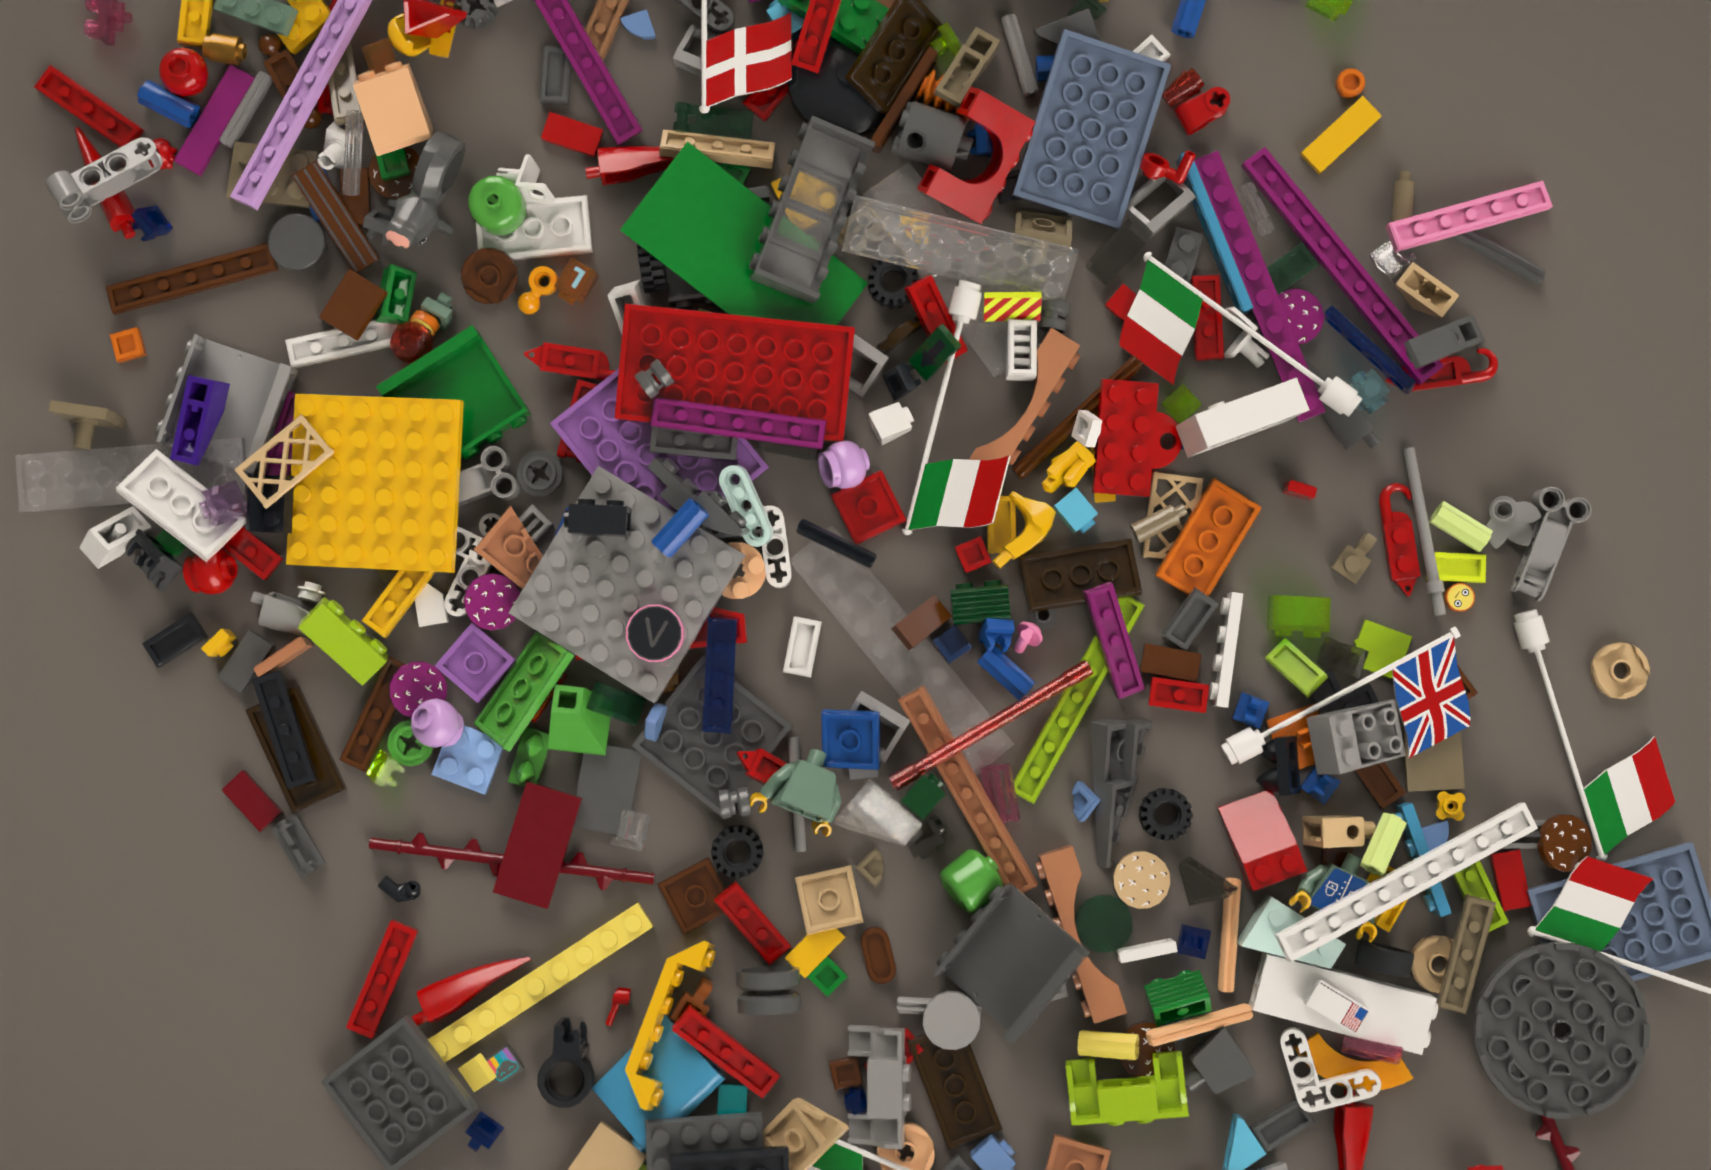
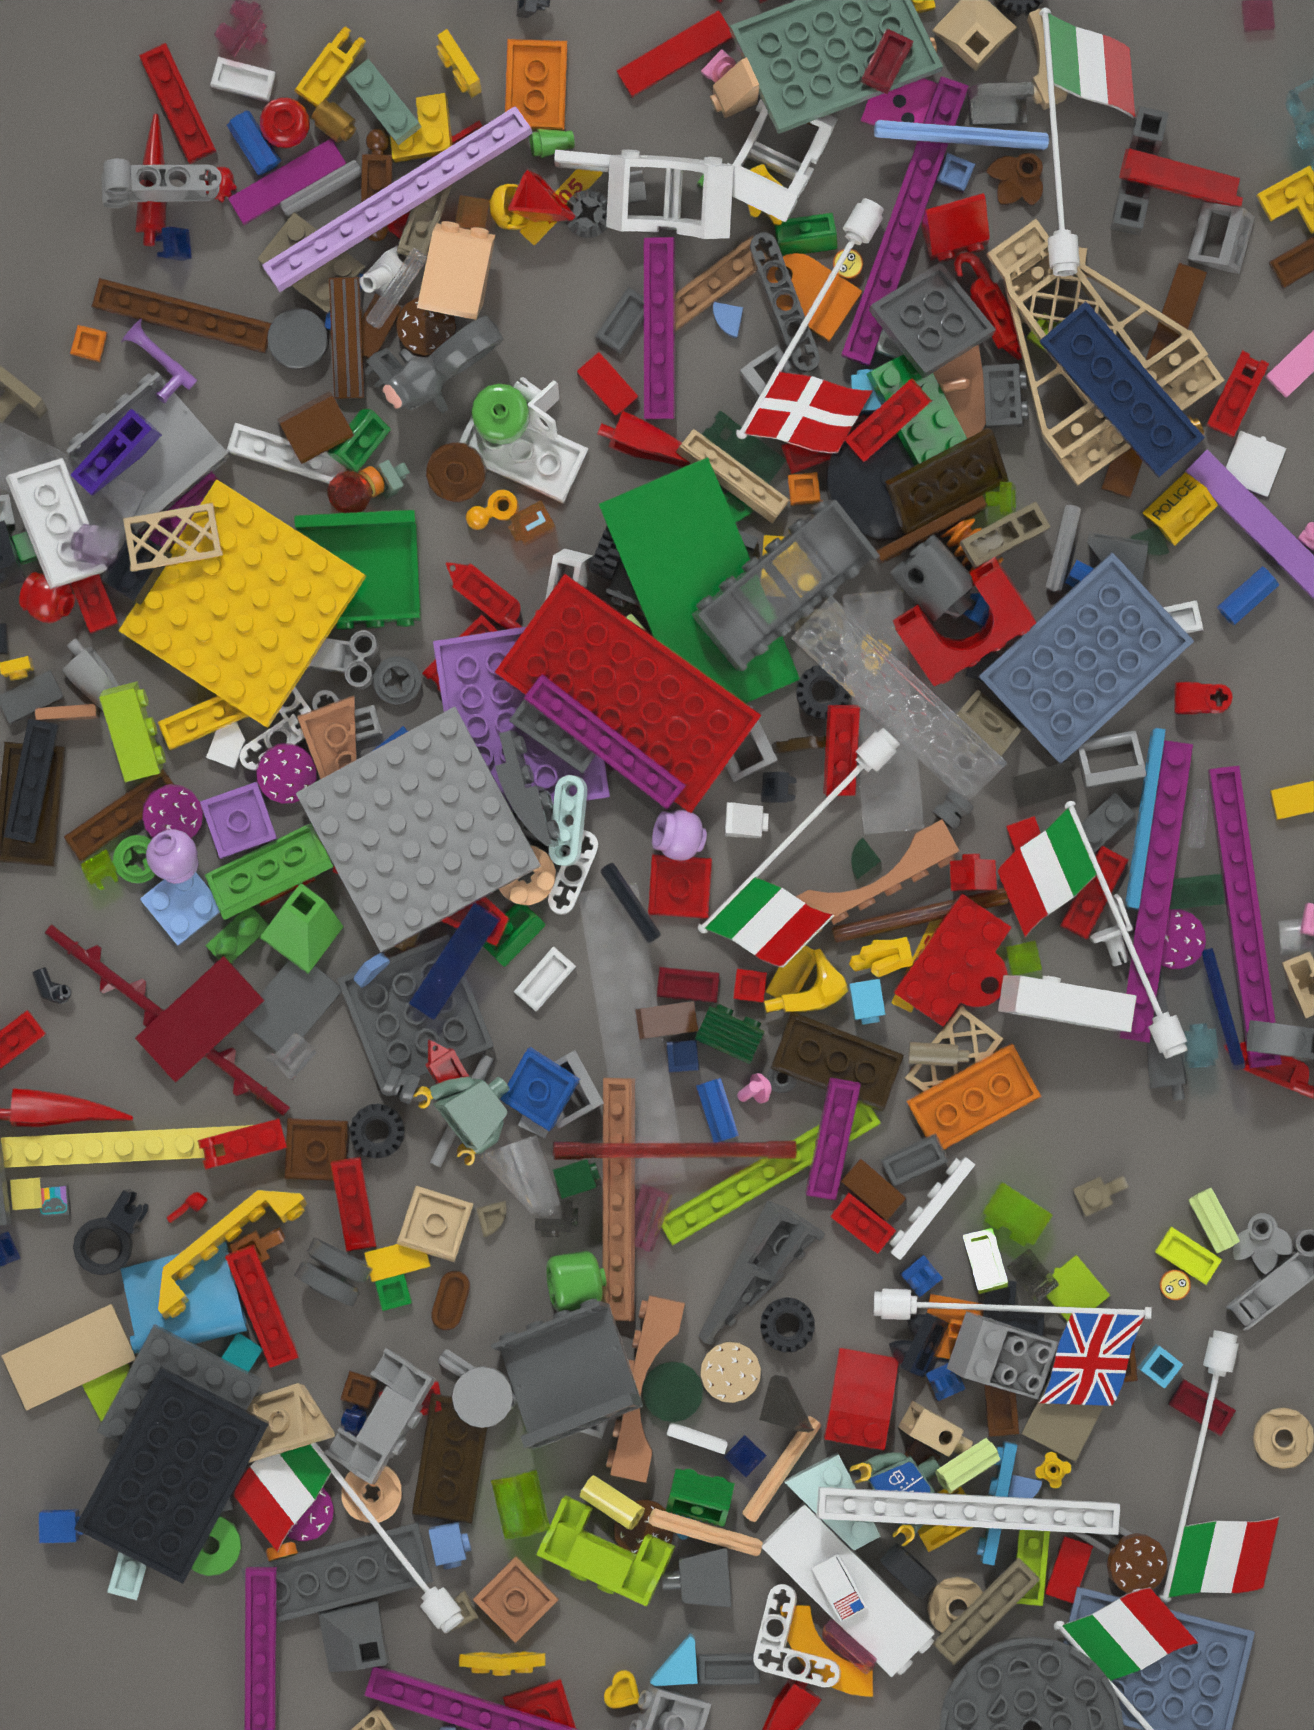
camera: 30 degrees right, 0 degrees up
(131, 58) = (243, 79): none -> white tile
(217, 327) = (179, 374): none -> medium lavender piece
(311, 592) = (125, 668): white plate -> none
(393, 164) = (426, 321): green tile -> none
(598, 520) = (426, 757): black brick -> none
(616, 703) = (345, 932): clear green tile -> none
(633, 926) = (243, 1143): none -> red plate
(648, 381) = (544, 659): dark grey wheel -> none
(655, 633) = (418, 889): black tile -> none
(680, 527) = (496, 807): blue axle -> none
(759, 618) = (518, 933): none -> green slope
(781, 127) = (804, 489): none -> orange tile
(921, 583) = (687, 984): none -> dark red tile
(934, 352) = (821, 780): dark green tile -> none
(996, 632) = (730, 1069): blue tile -> none
(1004, 398) = (863, 858): none -> clear green tile
(1012, 305) = (917, 779): tile -> none
(1021, 374) = (888, 845): white slope -> none
(1034, 1091) = (520, 1504): none -> clear neon green brick
(1083, 800) = (720, 1269): medium blue tile -> none
(1086, 428) = (921, 930): white plate -> none
(1101, 358) = (973, 874): none -> red brick
(1157, 167) = (1127, 726): red plate -> none
(1183, 87) = (1196, 667): clear red cone -> none
(1299, 490) = (1084, 1100): red tile -> none
(1399, 540) = (1150, 1200): red plate -> none
(1434, 585) = (1156, 1260): light grey bar -> none
(1489, 670) = (1160, 1366): none -> medium azure brick
(1531, 684) = (1192, 1403): none -> dark red tile

